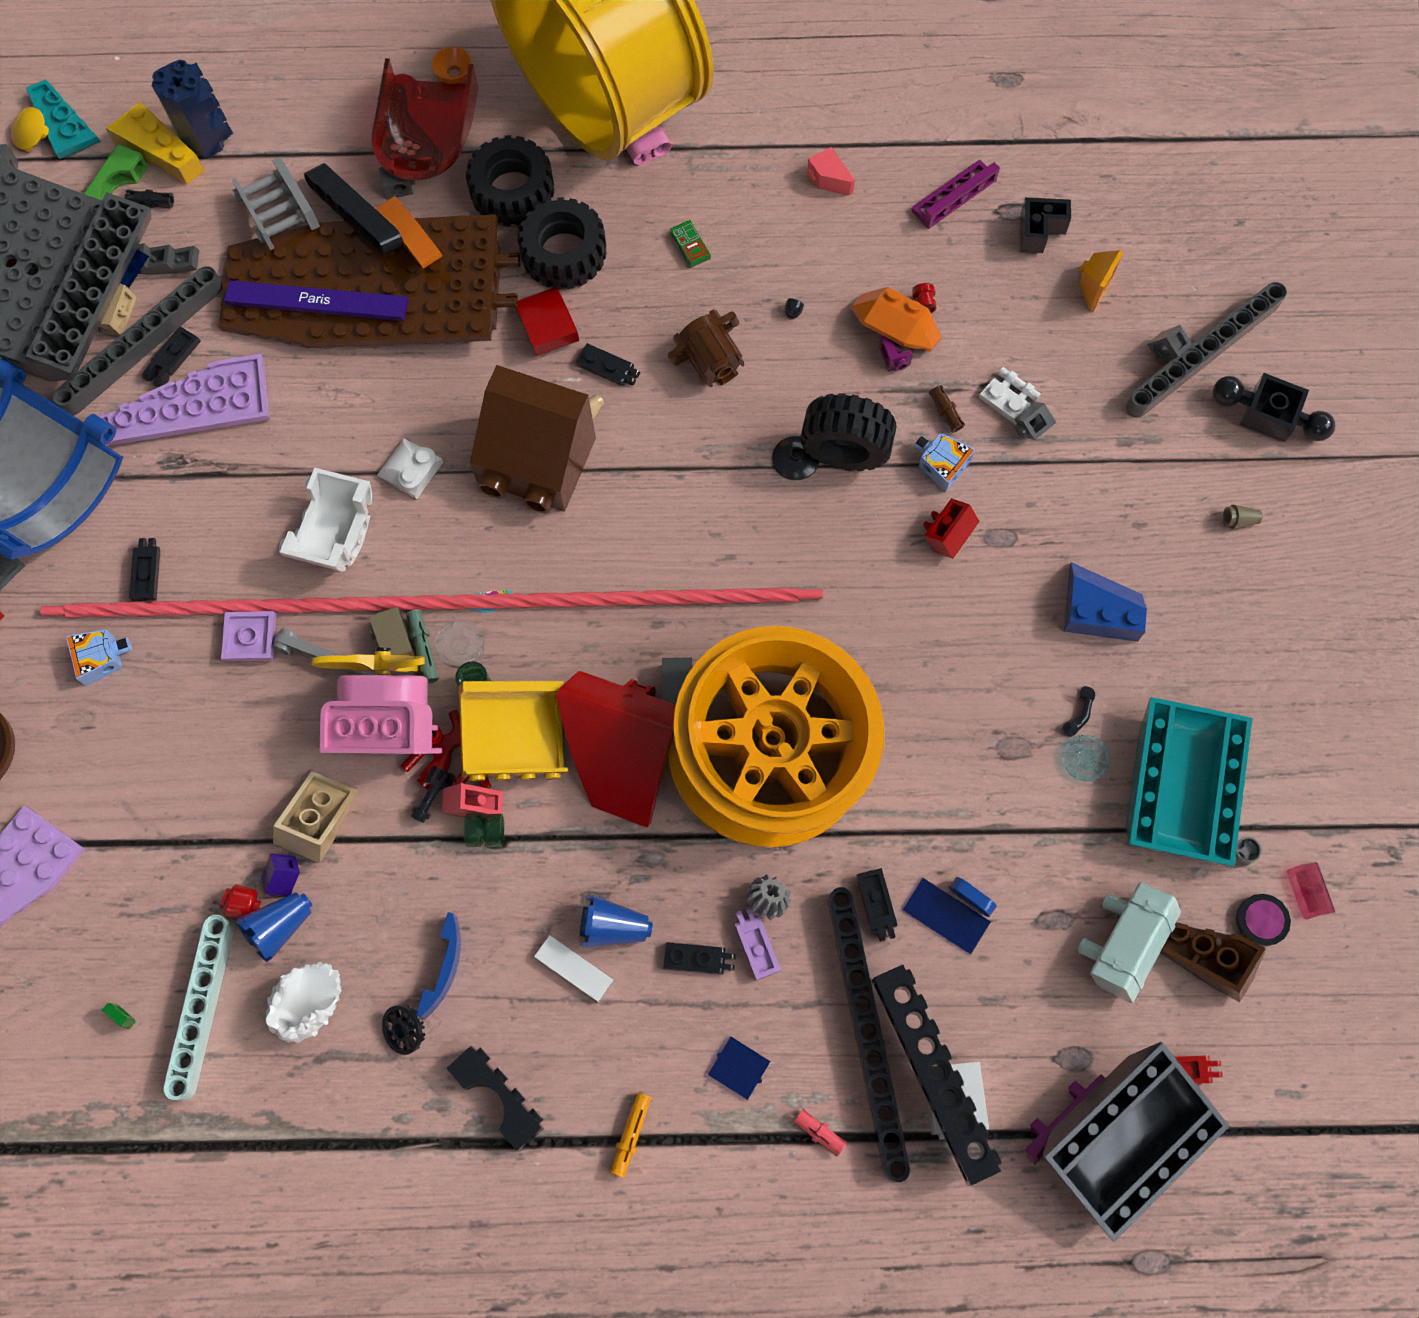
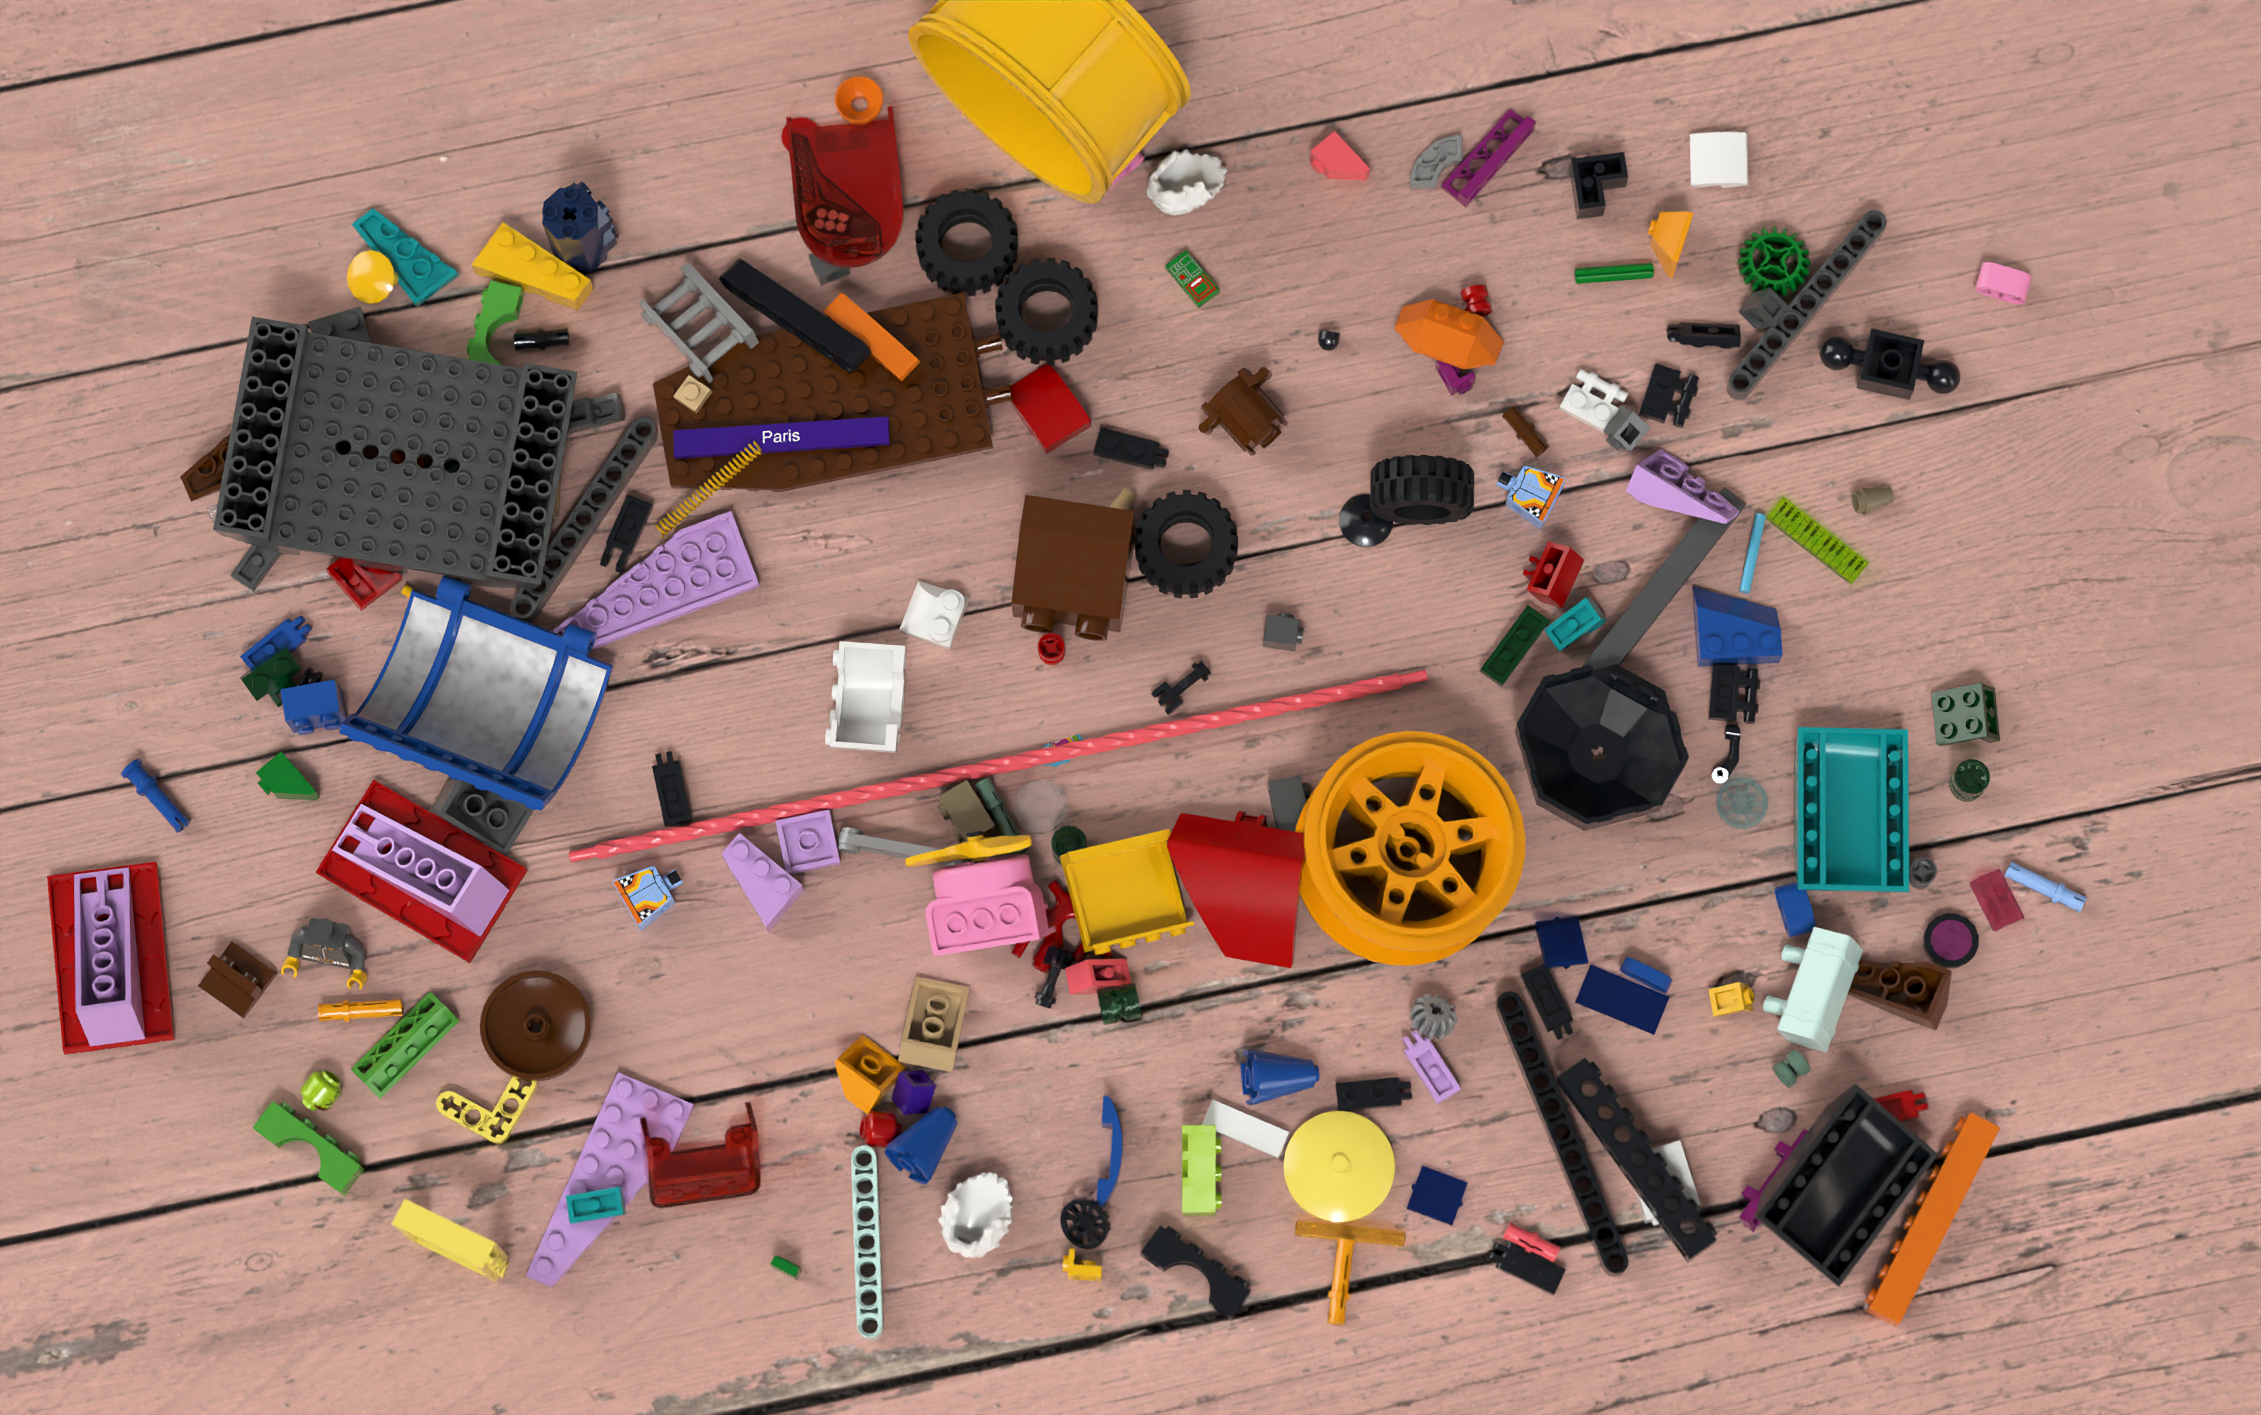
camera: 10 degrees left, 5 degrees up
(63, 911) = (702, 1172): none -> clear red windscreen
(197, 662) = (762, 880): none -> lavender wedge
(241, 331) = (710, 489): none -> yellow piece
(241, 849) = (867, 1073): none -> light orange slope
(254, 256) = (692, 394): none -> tan plate
(393, 1075) = (1085, 1271): none -> yellow bracket
(498, 507) = (1050, 644): none -> red wheel
(521, 1000) = (1200, 1170): none -> lime wedge
(596, 569) = (1171, 694): none -> black hinge
(635, 418) = (1186, 509): none -> black tyre
(649, 1088) = (1353, 1233): none -> clear yellow axle
(653, 1022) = (1339, 1167): none -> light yellow dish
(697, 166) = (1185, 182): none -> white hair
(703, 534) = (1282, 632): none -> dark grey brick
(812, 1156) = (1528, 1267): none -> black hinge
(899, 852) = (1561, 942): none -> clear blue piece
(904, 583) = (1514, 646): none -> dark green plate
(910, 188) = (1434, 161): none -> light grey tile
(965, 571) = (1575, 623): none -> teal plate
(975, 650) = (1607, 711): none -> black windscreen
(1043, 558) = (1661, 588): none -> dark grey beam
(1044, 298) = (1614, 273): none -> green axle
(1049, 935) = (1731, 999): none -> yellow bracket
(1063, 470) = (1666, 484): none -> lavender wedge
(1069, 397) = (1660, 394): none -> black plate
(1086, 656) = (1724, 694): none -> black plate
(1096, 1012) = (1791, 1068): none -> sand green wheel
(1111, 358) = (1705, 334): none -> black hinge
(1121, 863) = (1794, 909): none -> blue beam
(1128, 544) = (1752, 553): none -> medium azure bar
(1148, 225) = (1719, 159): none -> white slope
(1184, 302) = (1763, 244): none -> green gear
(1187, 544) = (1817, 540): none -> clear neon green tile
(1212, 1189) = (1932, 1219): none -> orange brick
(1301, 775) = (1969, 780): none -> clear green wheel
(1302, 716) = (1965, 714): none -> bracket
(1363, 889) = (2046, 887): none -> light blue pin
(1380, 361) = (2003, 283): none -> bright pink beam

